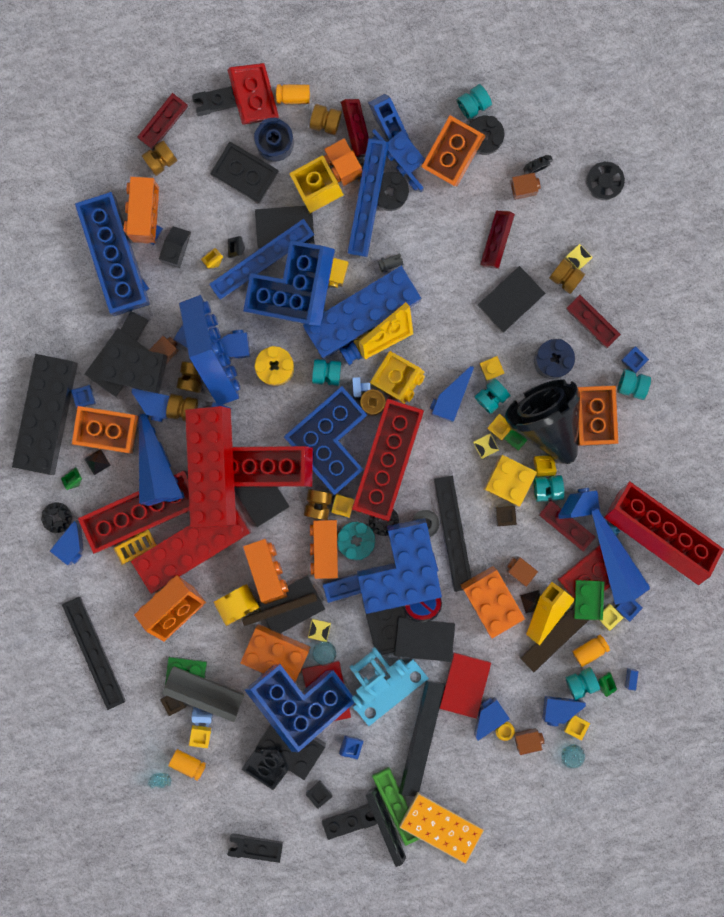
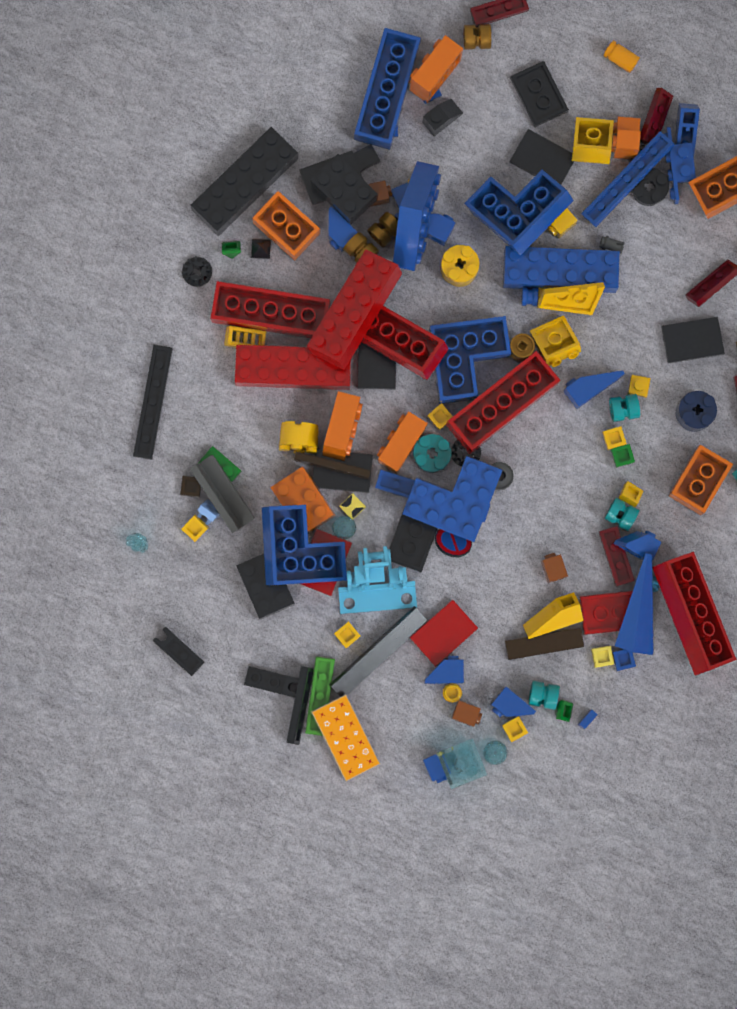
camera: 30 degrees right, 5 degrees down
(69, 545) = (193, 300): blue slope -> none
(83, 396) = (286, 187): blue tile -> none
(155, 475) = (304, 287): blue wedge -> none
(169, 608) = (242, 404): orange brick -> none
(187, 764) = (169, 544): light orange piece -> none
(212, 259) = (466, 146): yellow slope -> none
(214, 100) = (558, 22): black plate -> none
(235, 247) = (492, 148): black slope -> none
(252, 93) = (588, 35): red tile -> none
(260, 259) = (505, 171): blue plate -> none
(266, 767) = (234, 587): black tile -> none
(284, 139) = (584, 72): dark blue brick -> none
(319, 794) = (261, 643): black tile -> none
(320, 498) = (425, 396): pearl gold wheel -> none
(325, 119) = (634, 93): pearl gold wheel -> none
(326, 372) = (499, 298): teal wheel -> none
(351, 747) = (314, 620): blue tile -> none
(359, 387) = (517, 328): light blue tile -> none
(386, 741) = (347, 635): none -> yellow plate
(424, 640) = (435, 571): black tile -> none
(453, 531) = (517, 501): black tile -> none
(485, 446) = (591, 446): light yellow tile -> none
(492, 602) = (513, 576): orange brick -> none
(506, 516) = (570, 515): dark brown tile -> none
(510, 480) = (593, 486): yellow brick -> none
(530, 601) = (544, 598): black slope -> none
(533, 802) = (434, 768): none -> blue brick
(549, 418) = (659, 457): black cone -> none
(552, 788) = (461, 763): none -> clear light blue slope
(589, 600) = (594, 629): green plate -> none
(591, 650) = (569, 673): light orange piece -> none

